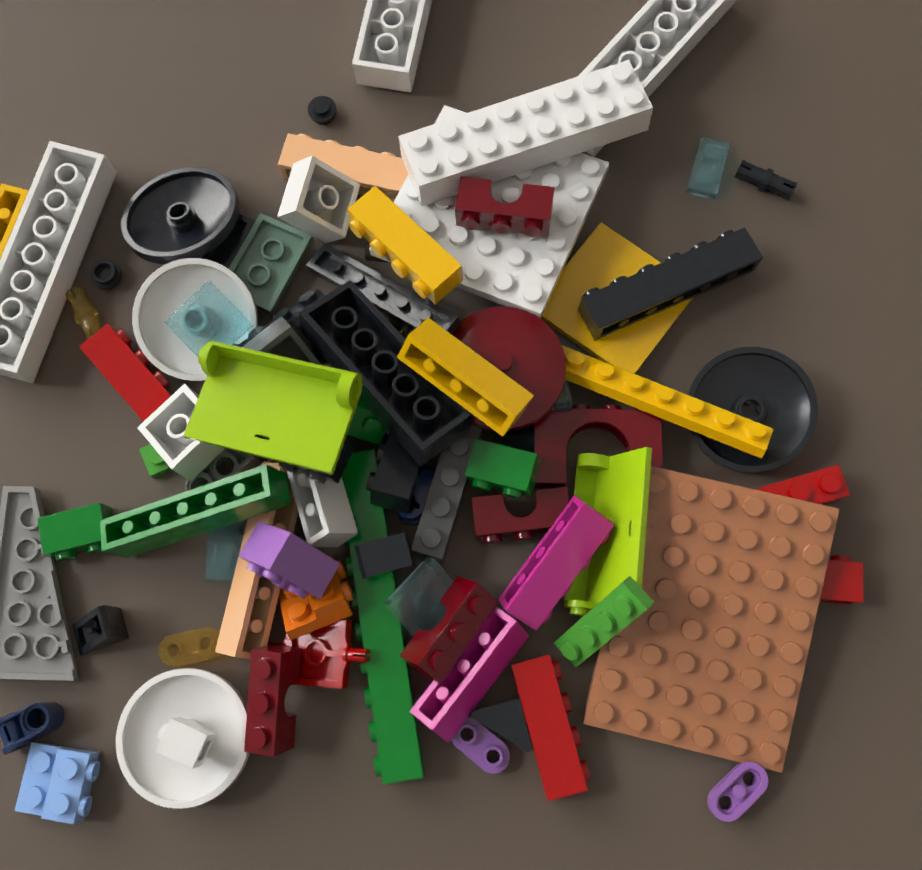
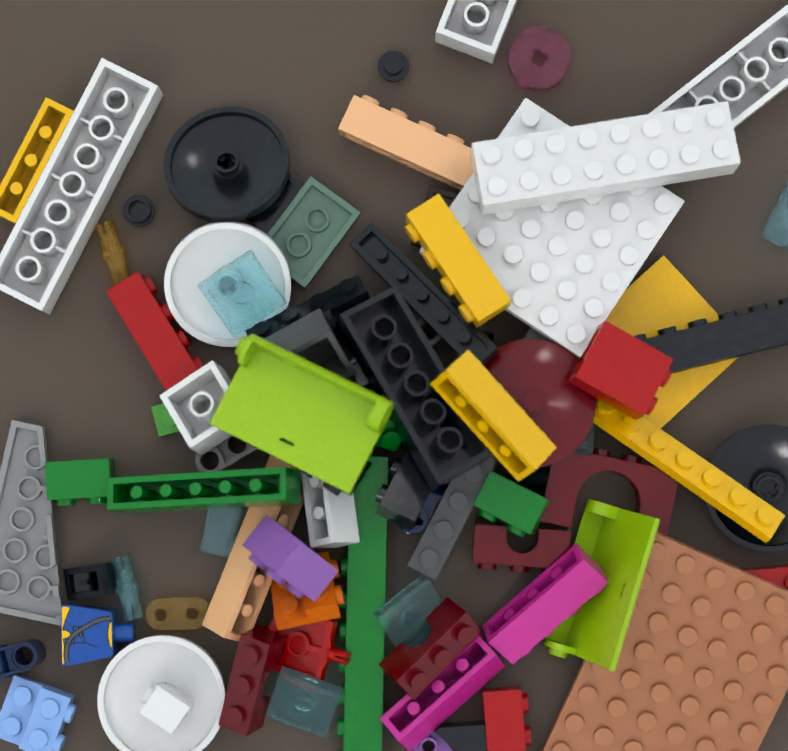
camera: 10 degrees right, 10 degrees up
(104, 683) = (91, 633): none -> blue torso
(137, 630) = (127, 588): none -> clear light blue pin
(318, 199) = (375, 179): white brick -> none
(330, 711) = (303, 702): none -> clear light blue tile
(384, 555) = (382, 568): black slope -> none
(455, 93) = (548, 43): none -> clear pink plate
(527, 215) = (590, 252): dark red arch -> none
(583, 316) = (622, 371): none -> red brick
(603, 621) = (577, 673): bright green plate -> none

